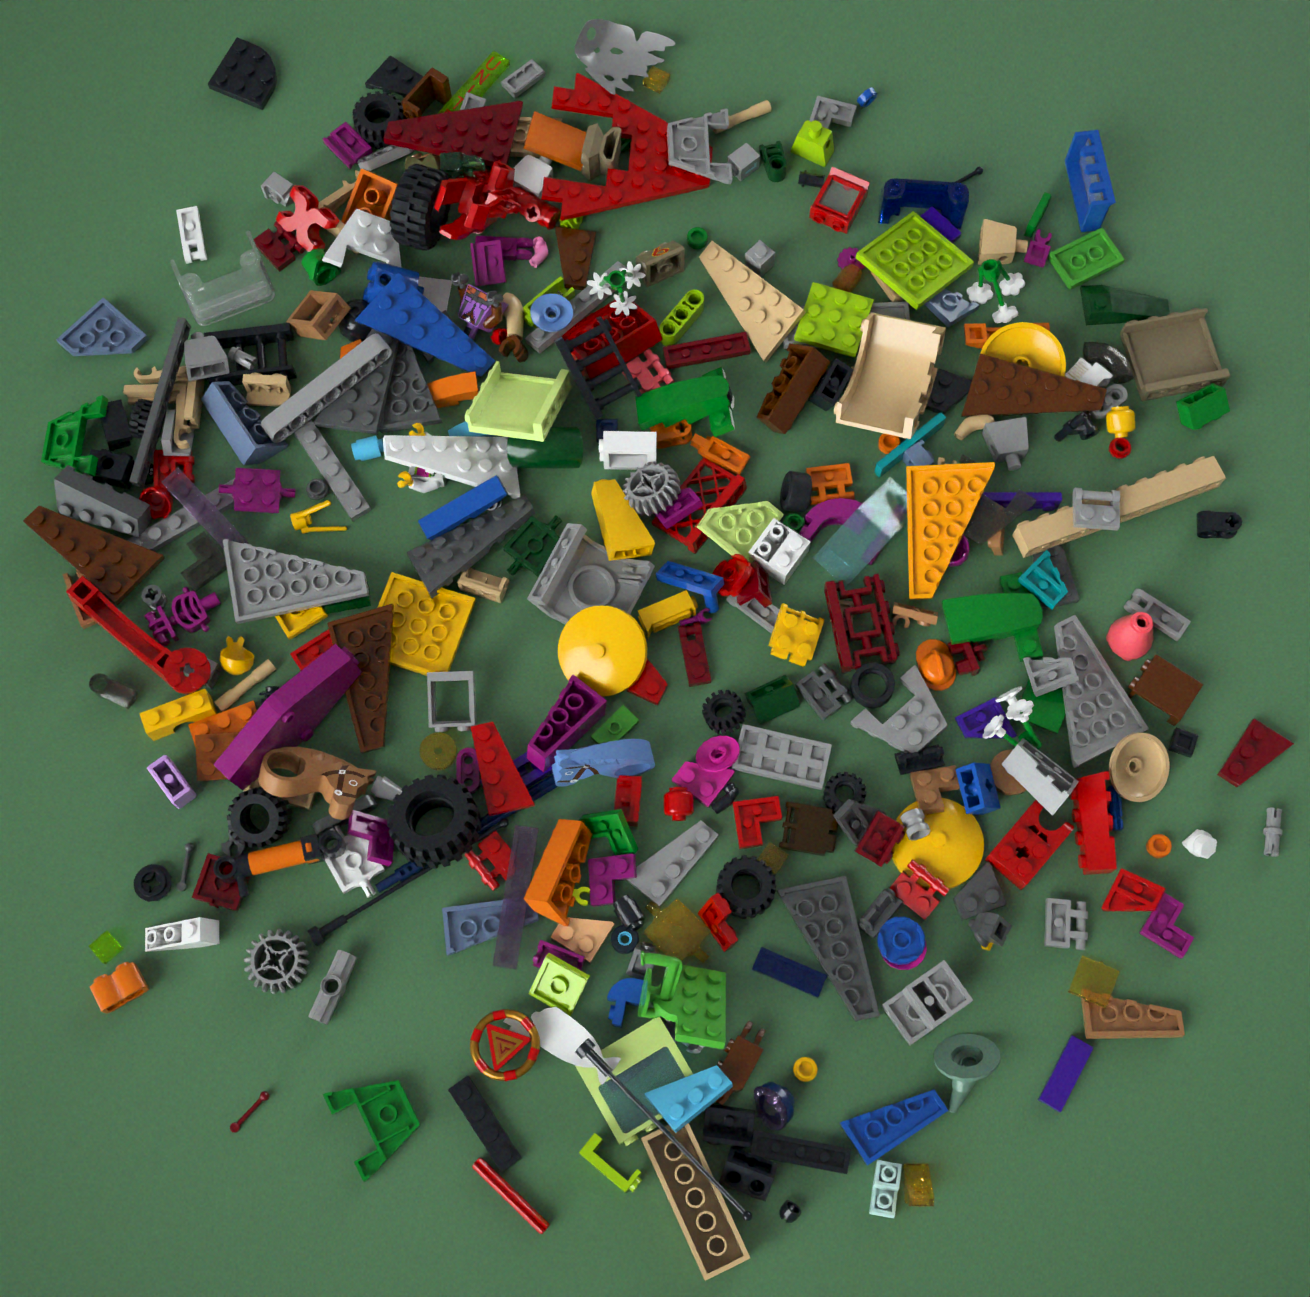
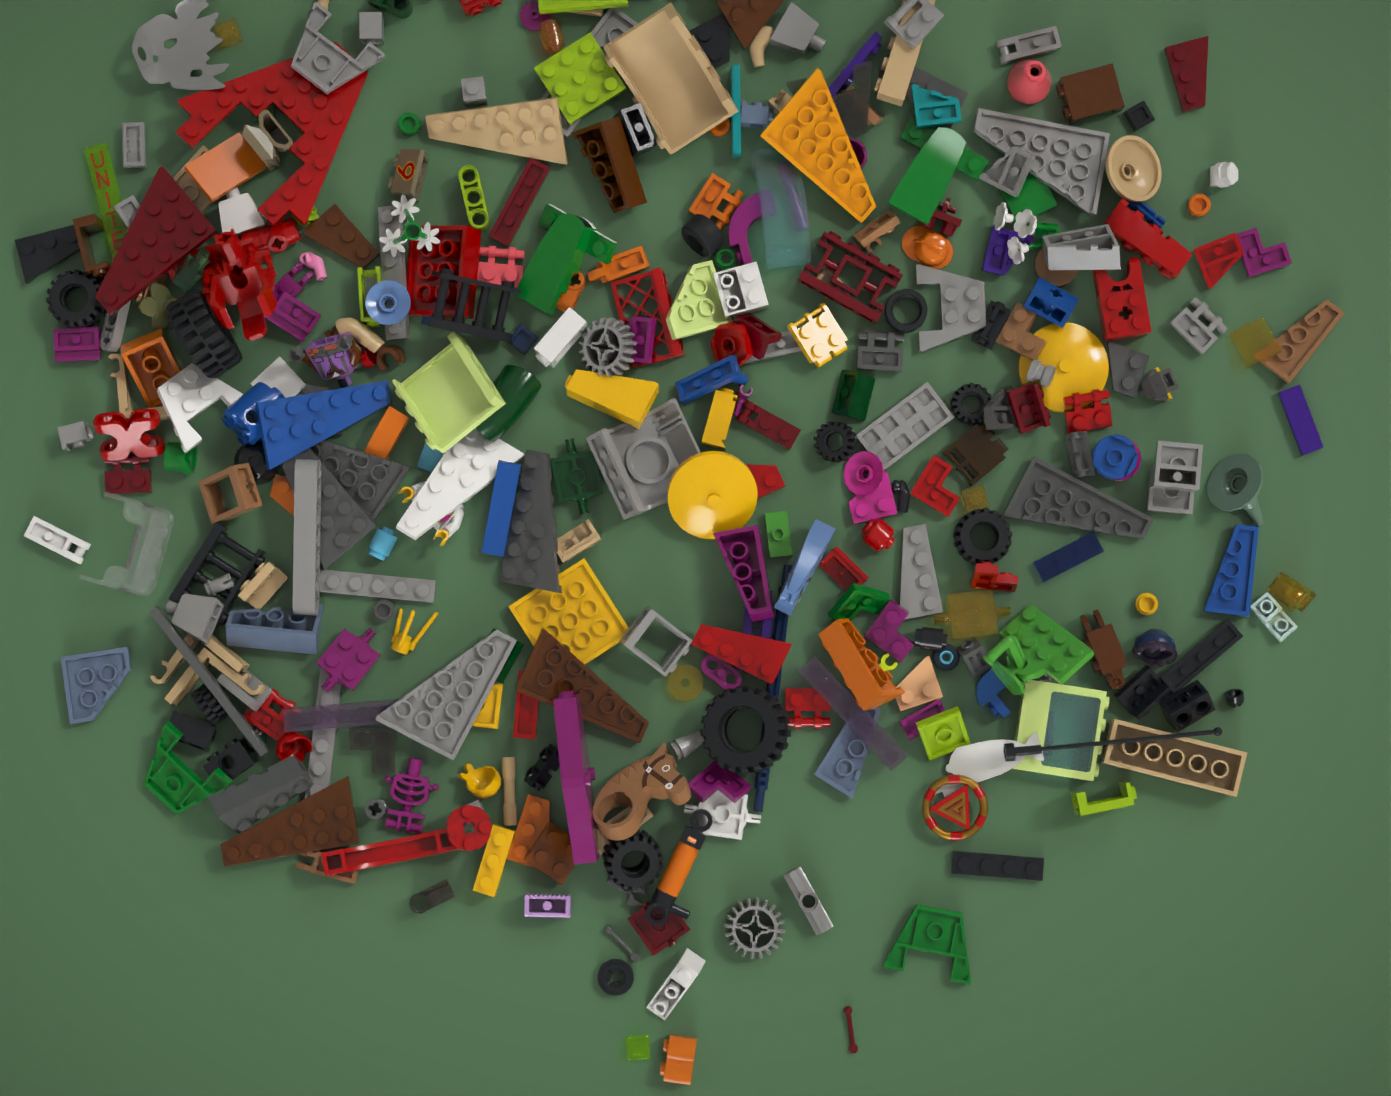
camera: 50 degrees left, 15 degrees up
(318, 934) = (758, 882): black piece -> none
(365, 805) = (677, 810): dark grey beam -> none
(510, 1195) = (1063, 886): red axle -> none
(689, 1096) = (1103, 705): medium azure wing -> none
(1272, 832) = (1257, 112): light grey pin -> none

